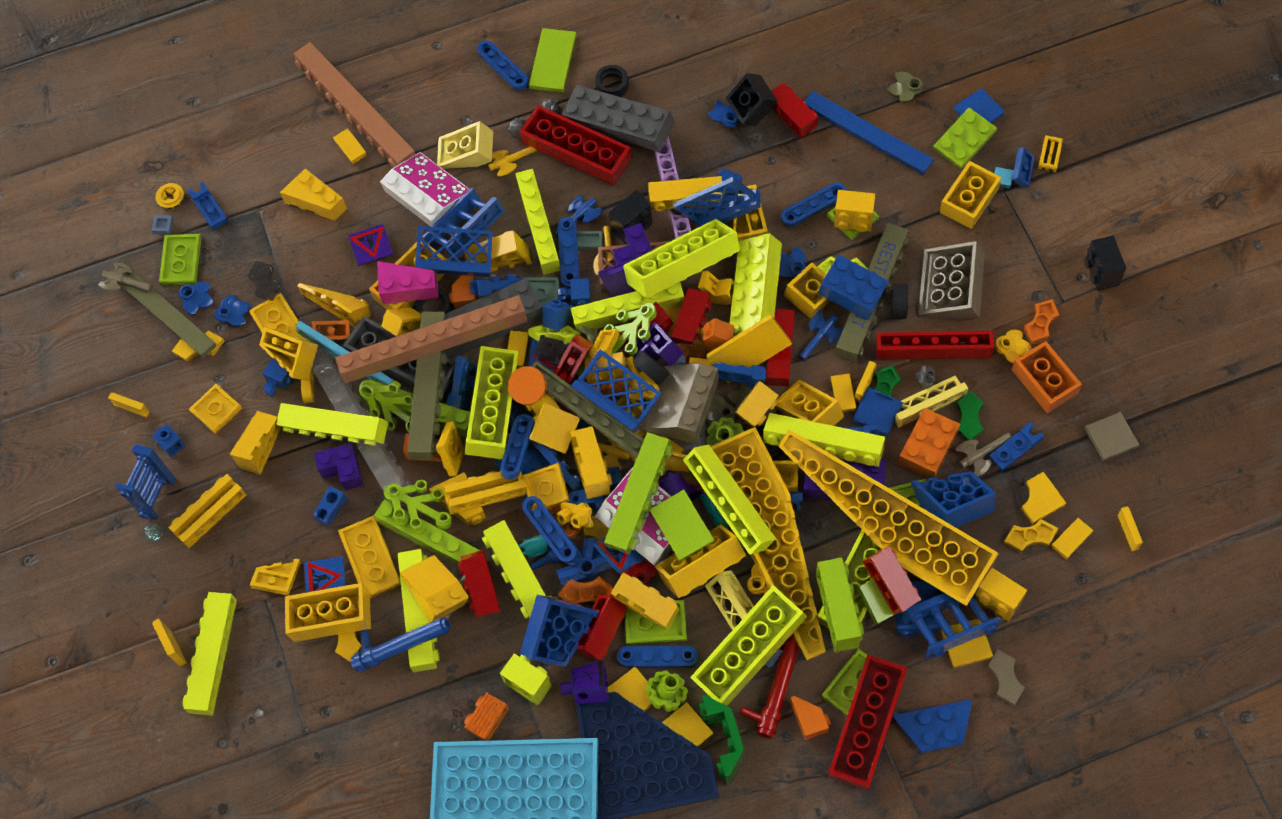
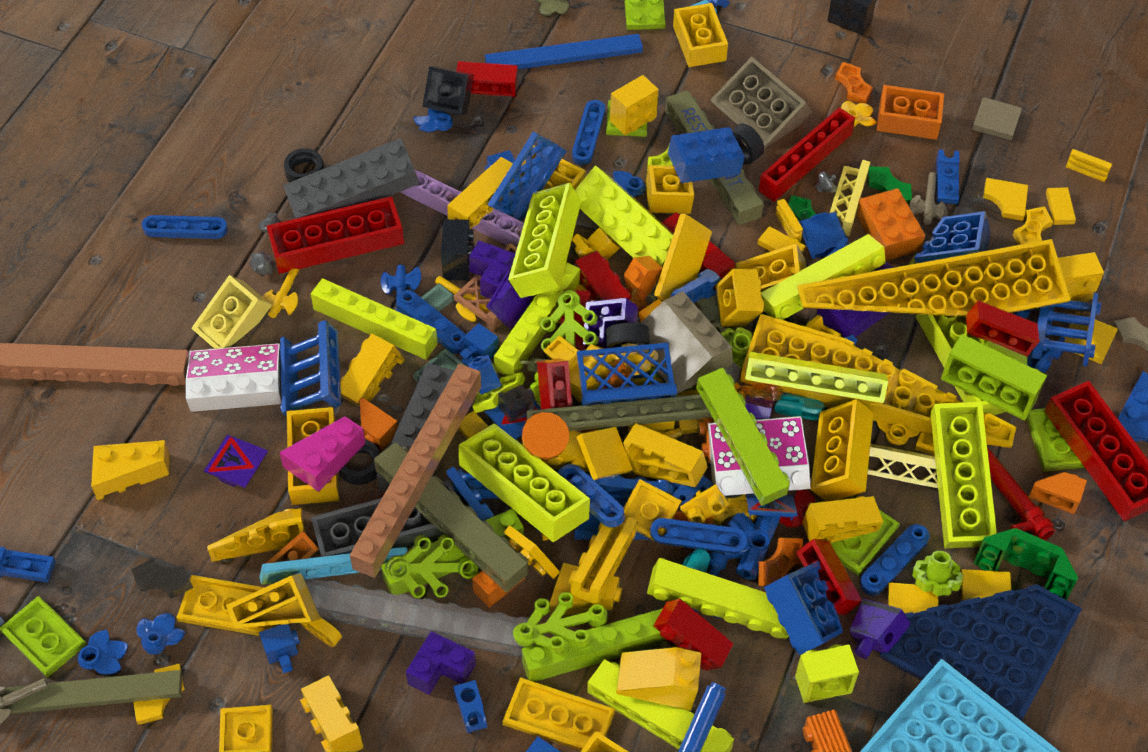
camera: 55 degrees left, 10 degrees down
(332, 423) = (392, 631): neon yellow brick -> none
(350, 146) = (109, 401): yellow tile -> none
(401, 320) = (354, 490): yellow brick -> none
(454, 267) = (353, 404): blue fence -> none
(484, 286) = (400, 394): blue plate -> none
(552, 60) = (226, 191): lime tile -> none
(682, 525) = (804, 430): lime tile -> none
(825, 328) = (711, 211): blue piece -> none

